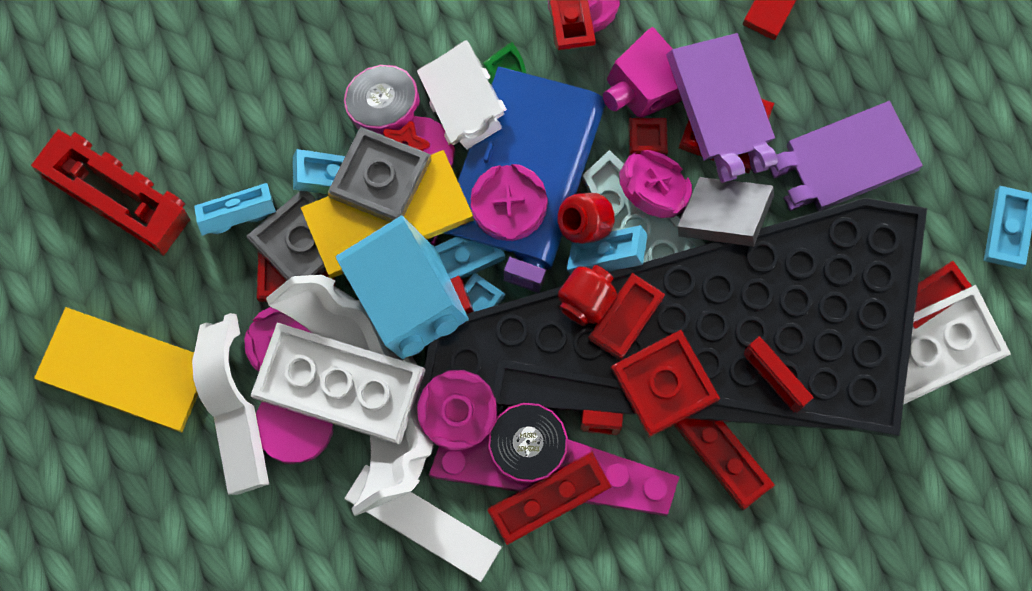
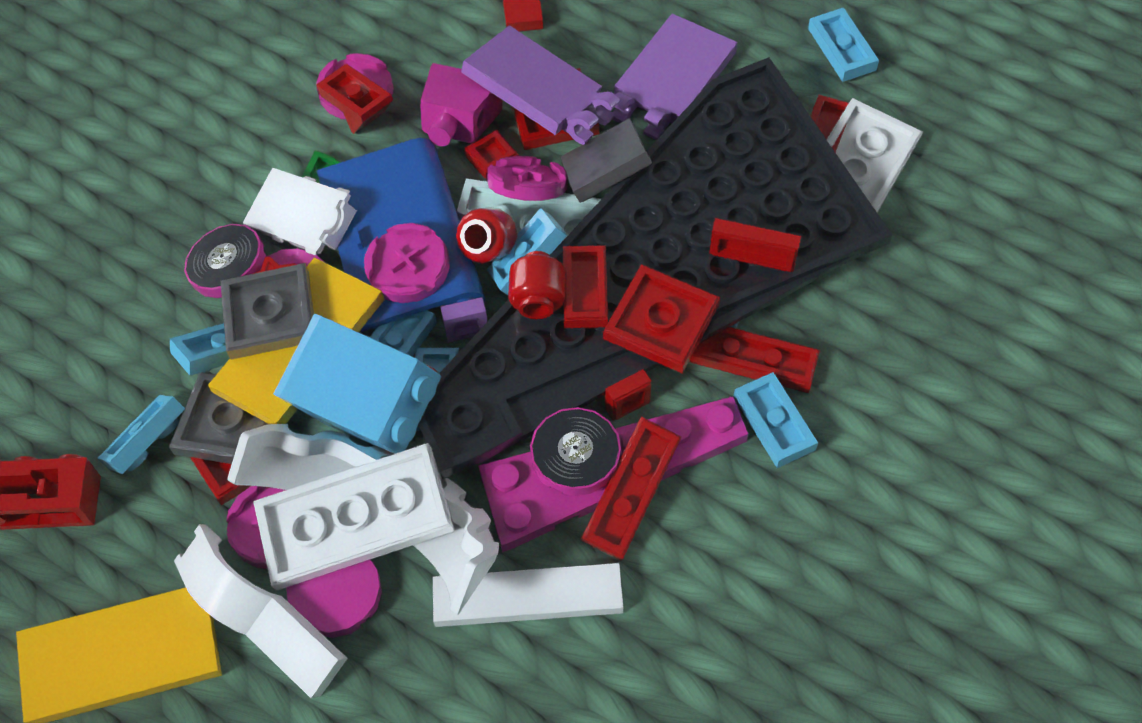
camera: 30 degrees left, 15 degrees down
(457, 409) = (496, 472): dark pink tile -> none
(696, 517) = (775, 420): none -> medium azure plate

